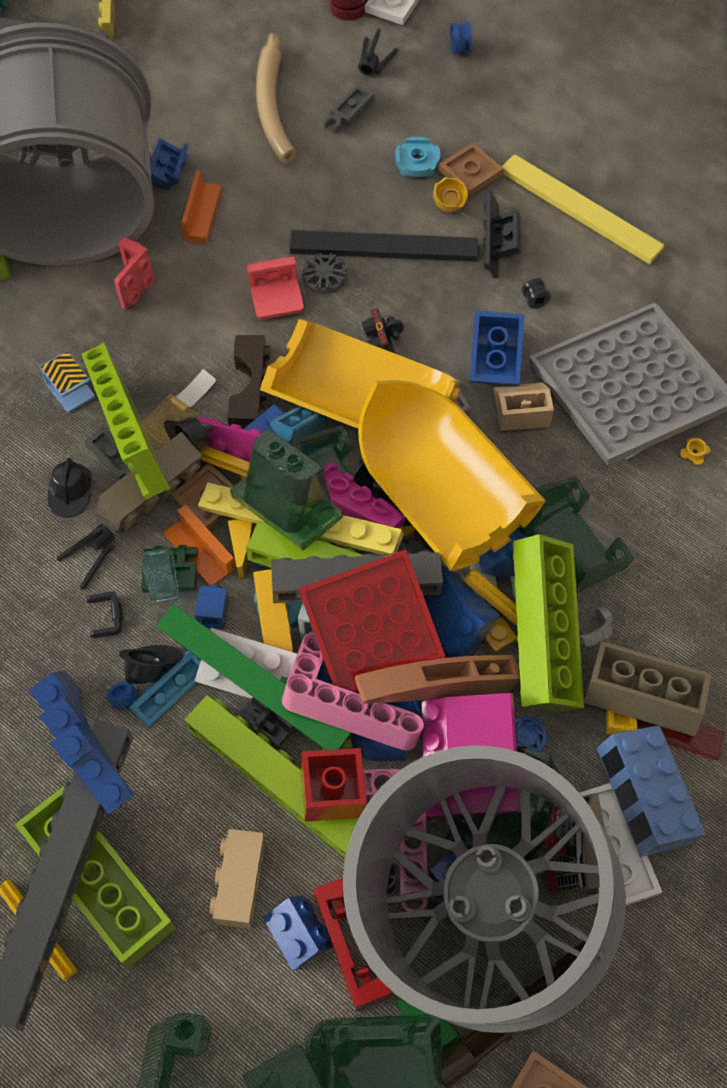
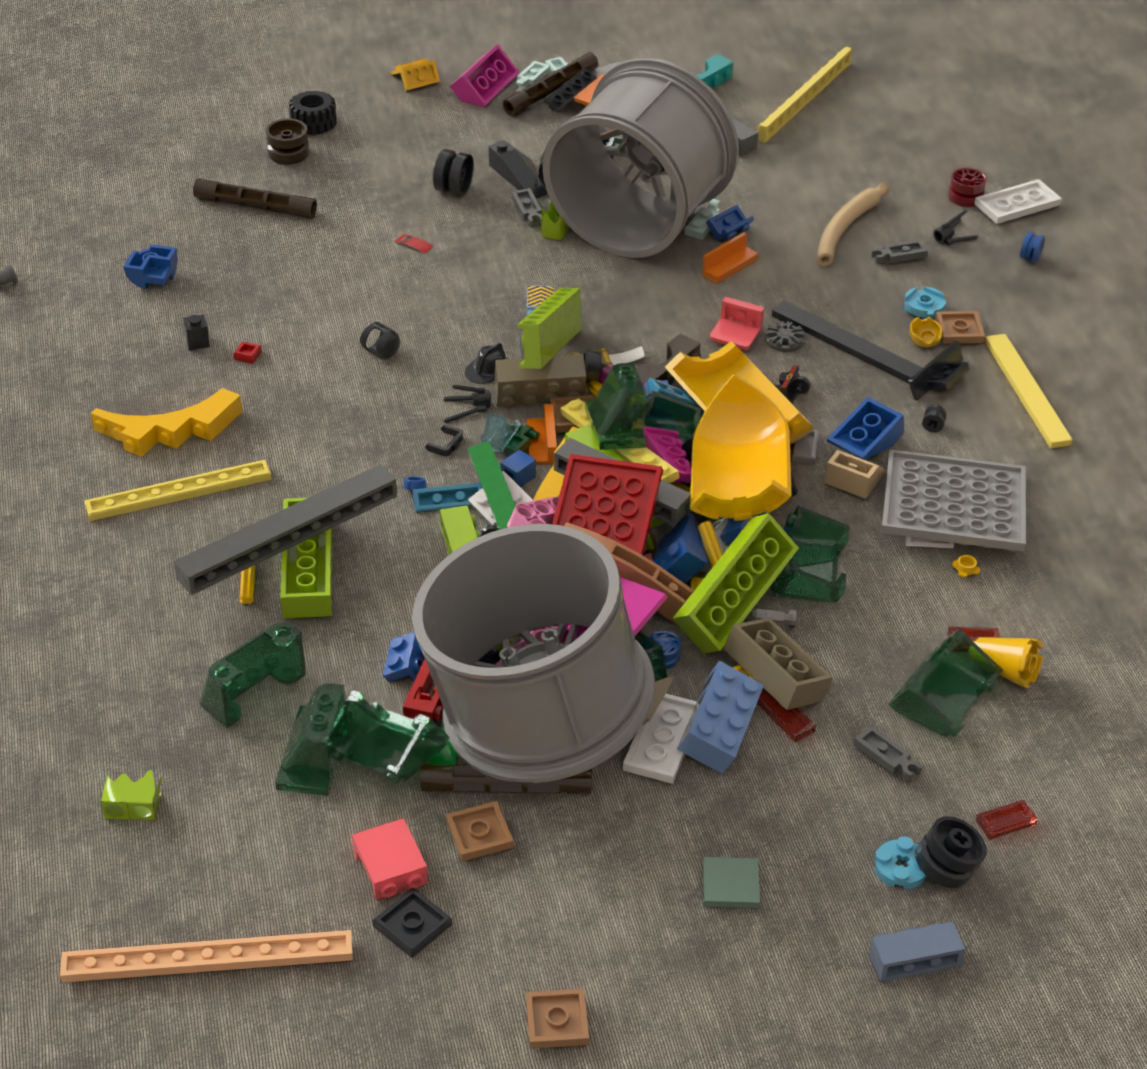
camera: 35 degrees right, 20 degrees down
(76, 741) = (357, 458): blue arch -> none
(136, 274) = (641, 270): coral bracket -> none
(148, 662) = (441, 474): black piece -> none
(238, 879) = (389, 613): tan brick -> none

